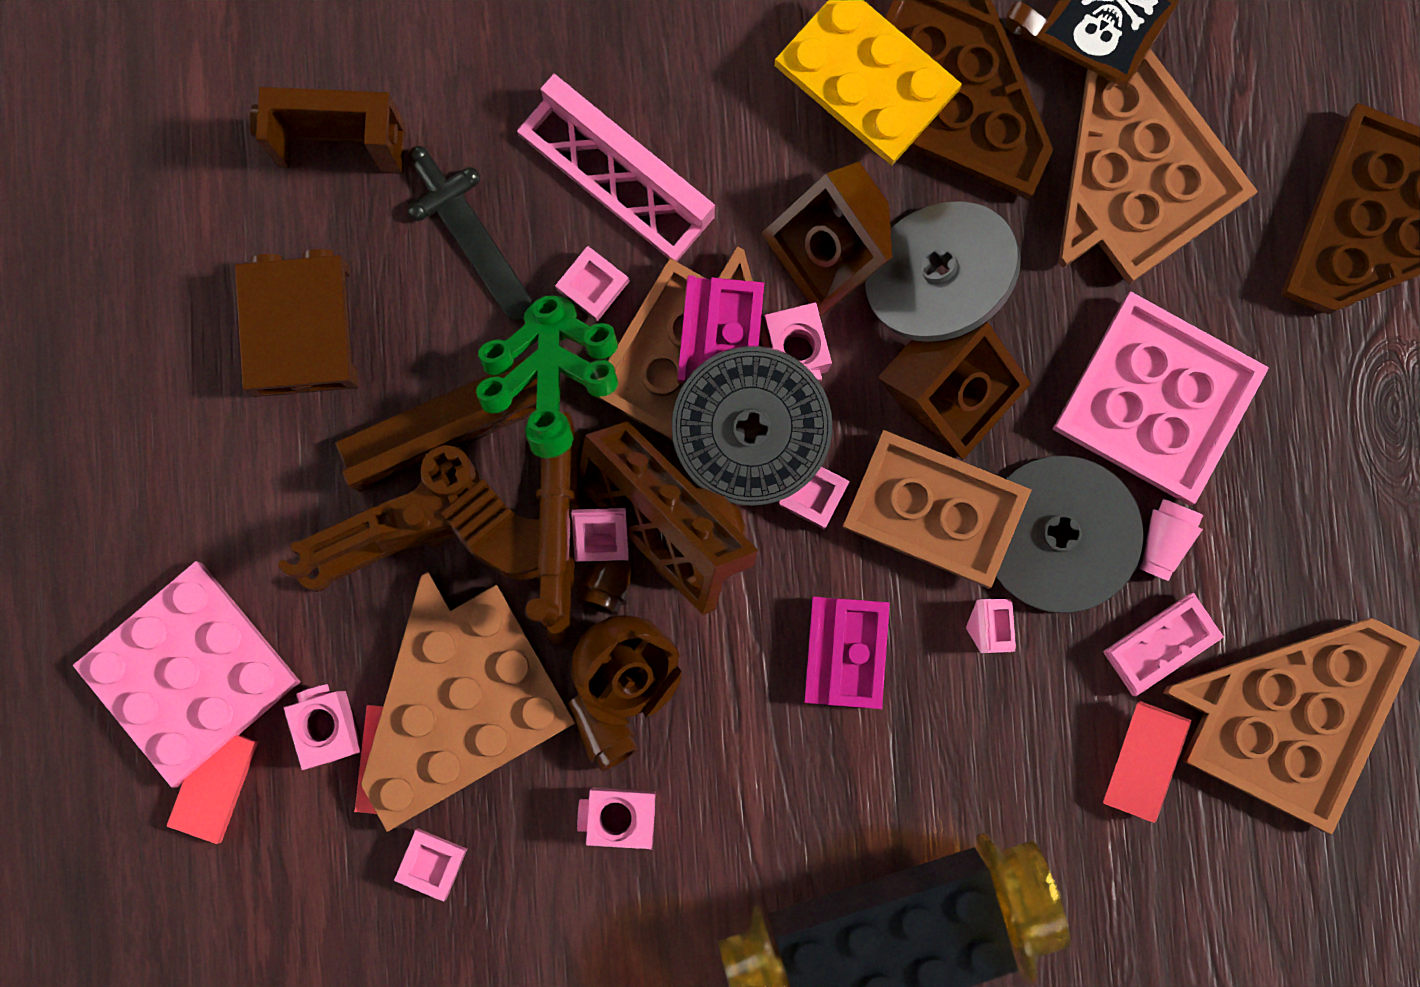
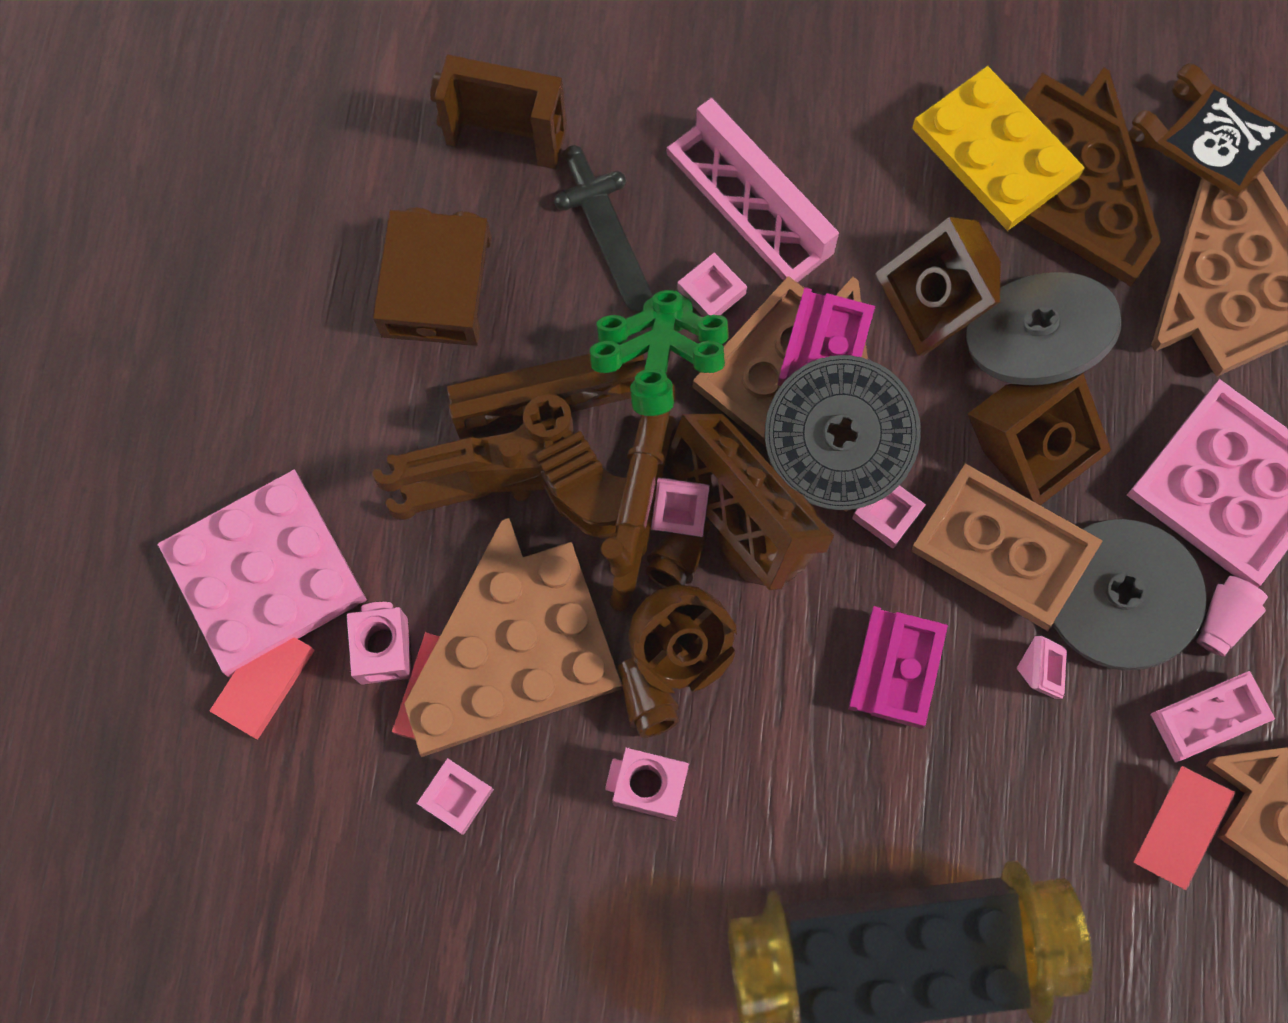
camera: 15 degrees right, 10 degrees down
(803, 323) = (903, 355): bright pink brick -> none

